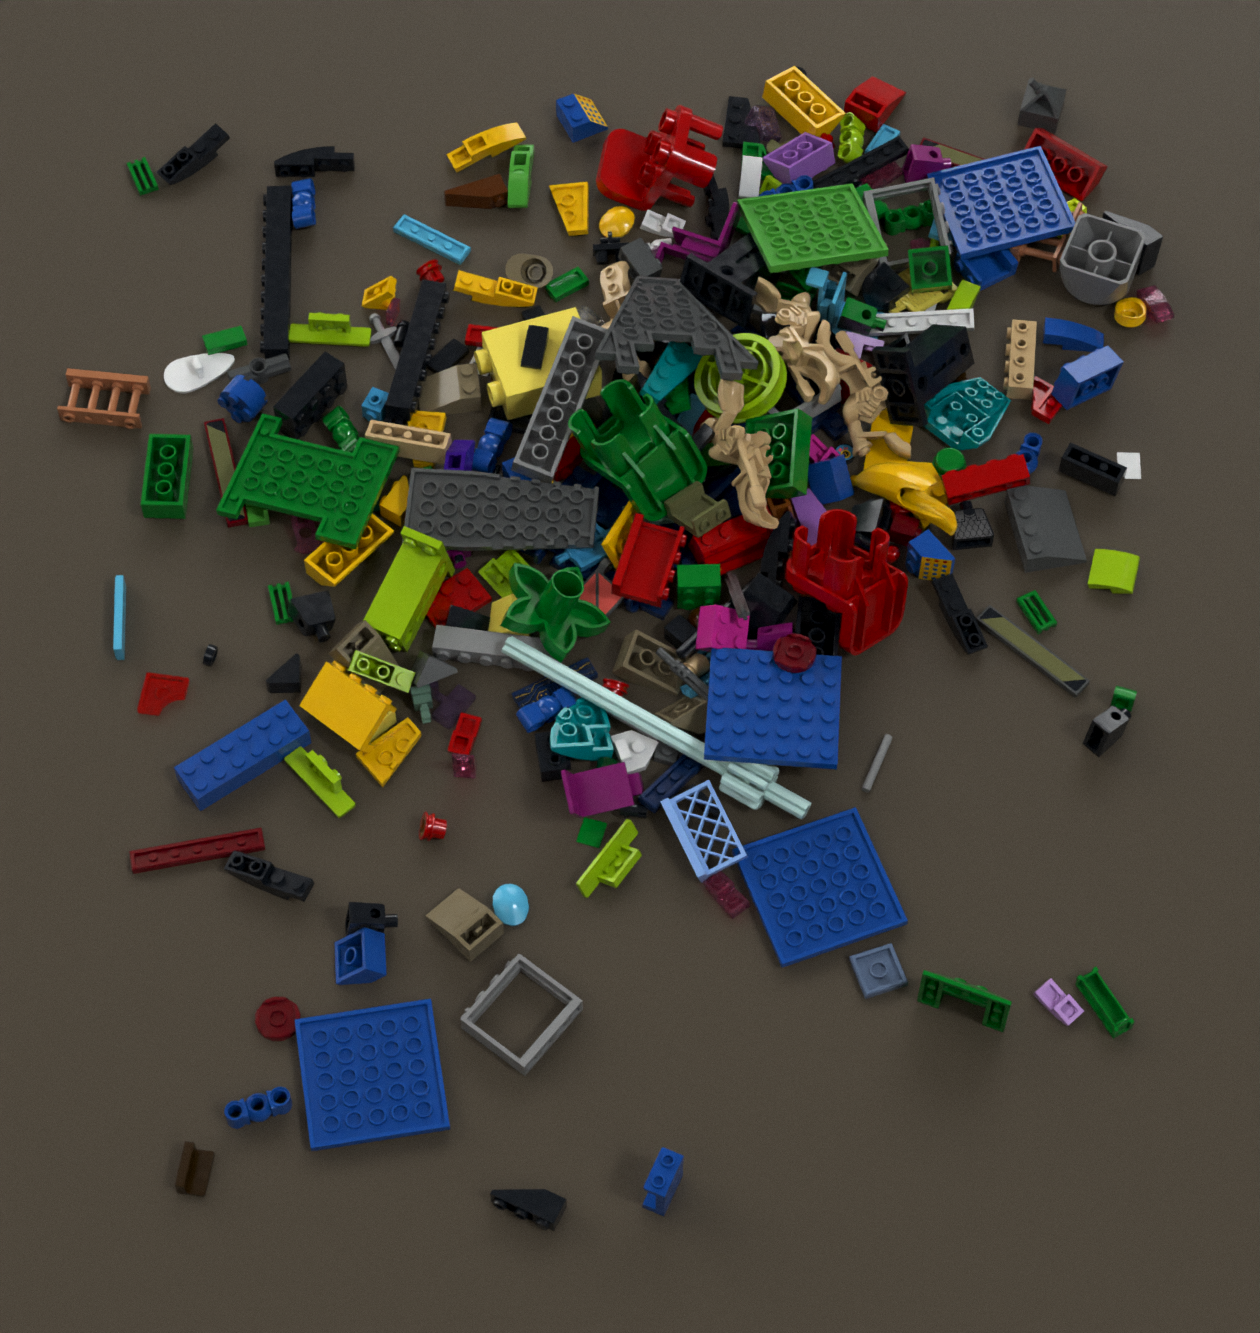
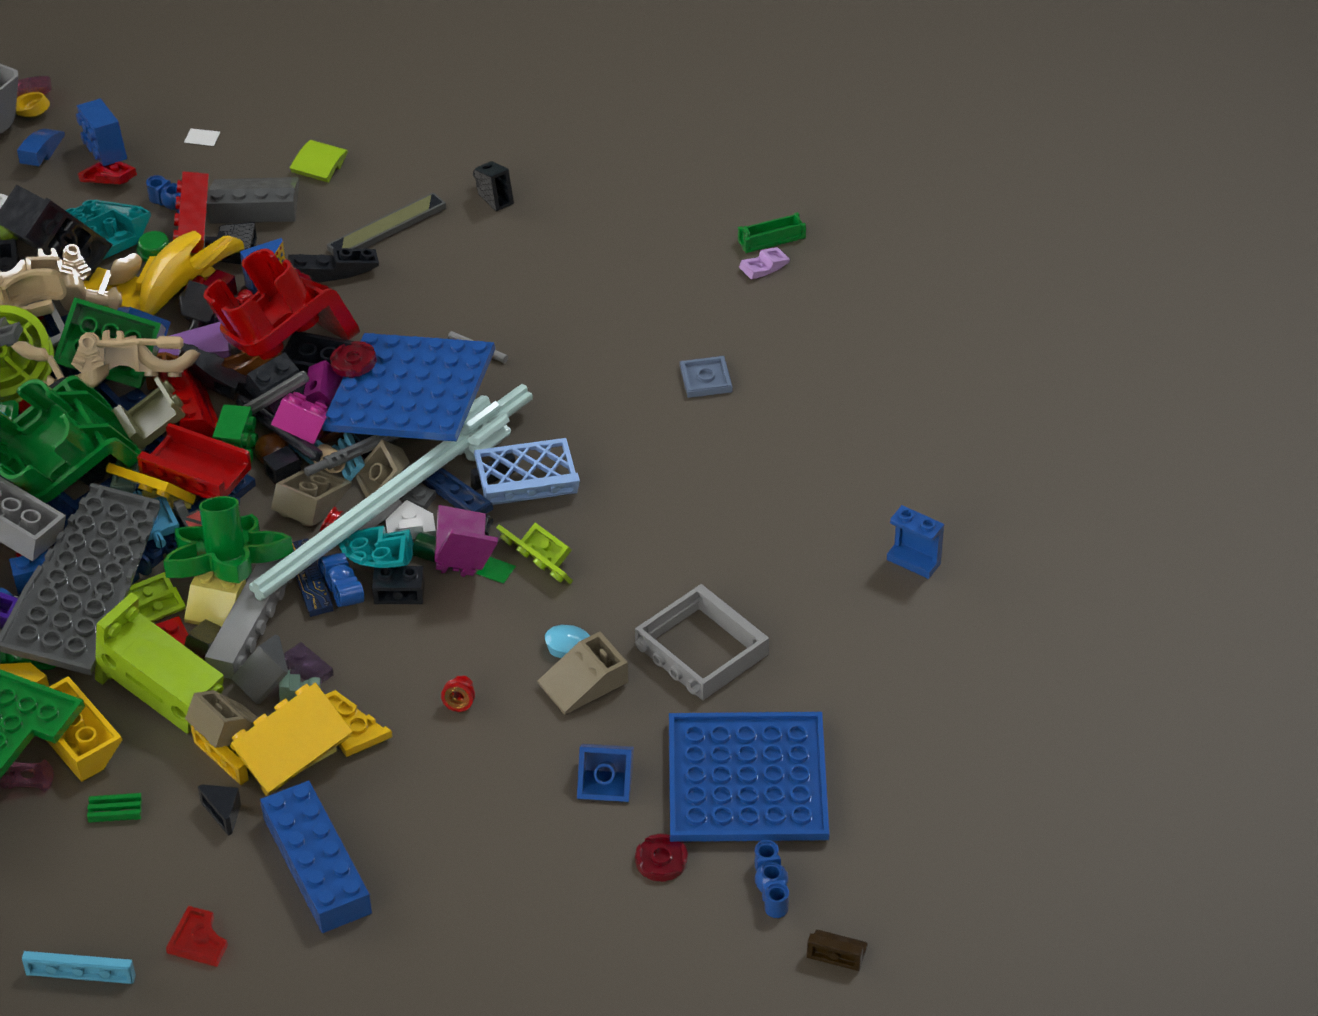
camera: 80 degrees left, 15 degrees down
(196, 850) = (426, 918): dark red tile -> none
(210, 655) = (165, 879): black tile -> none
(267, 877) = (485, 845): black slope -> none
(313, 614) = (149, 771): black torso -> none
(321, 780) = (368, 785): lime bracket -> none
(368, 916) = (564, 747): black torso -> none
(381, 671) = (258, 699): lime slope -> none
(464, 765) = (392, 654): clear pink slope -> none
(465, 734) = (345, 659): red slope -> none
(533, 1204) = (924, 648): black slope -> none
(725, 894) = (599, 472): clear pink slope -> none
(819, 887) = (608, 402): blue plate -> none
(935, 985) = (765, 298): green slope -> none
(1021, 359) = (53, 181): tan brick -> none
(1044, 626) = (344, 217): green tile -> none
(1092, 469) = (204, 149): black brick -> none
(1123, 698) = (459, 173): green brick -> none

